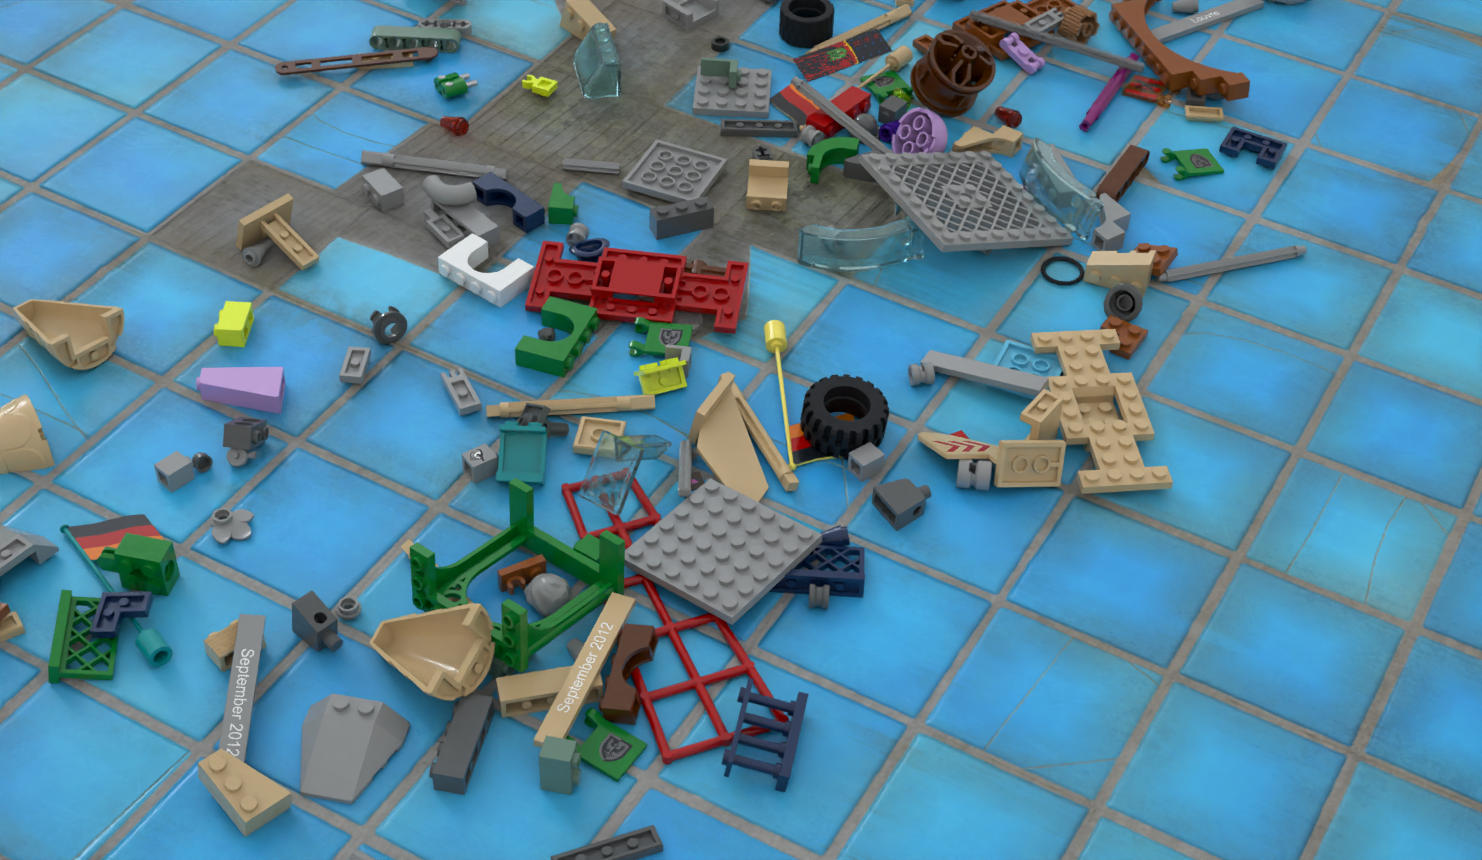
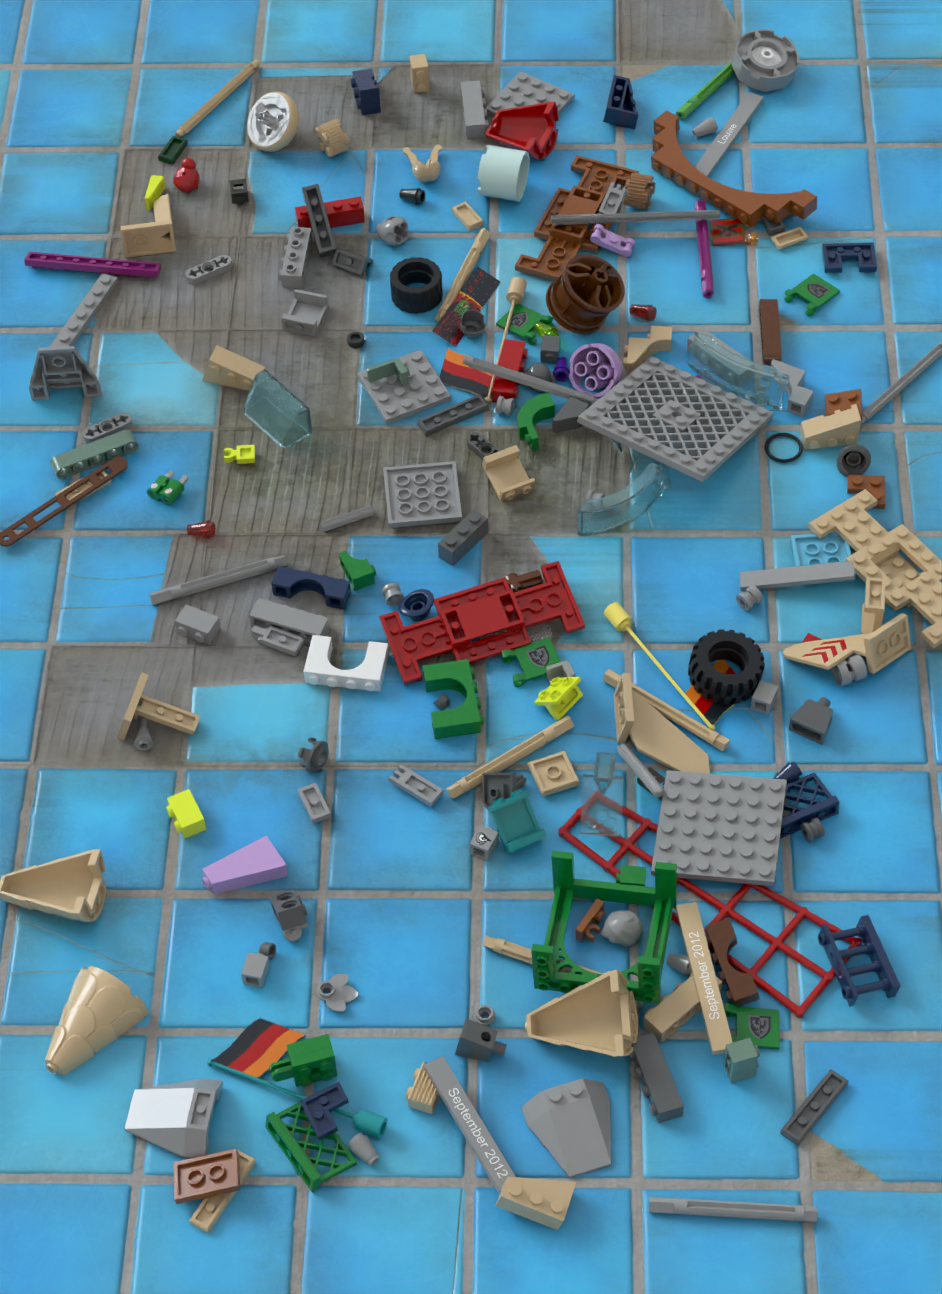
camera: 25 degrees left, 10 degrees up
(127, 666) = (364, 1149): none -> light grey cone
(449, 194) = (267, 608): light grey cylinder -> none
(834, 66) = (472, 323): none -> dark grey hair

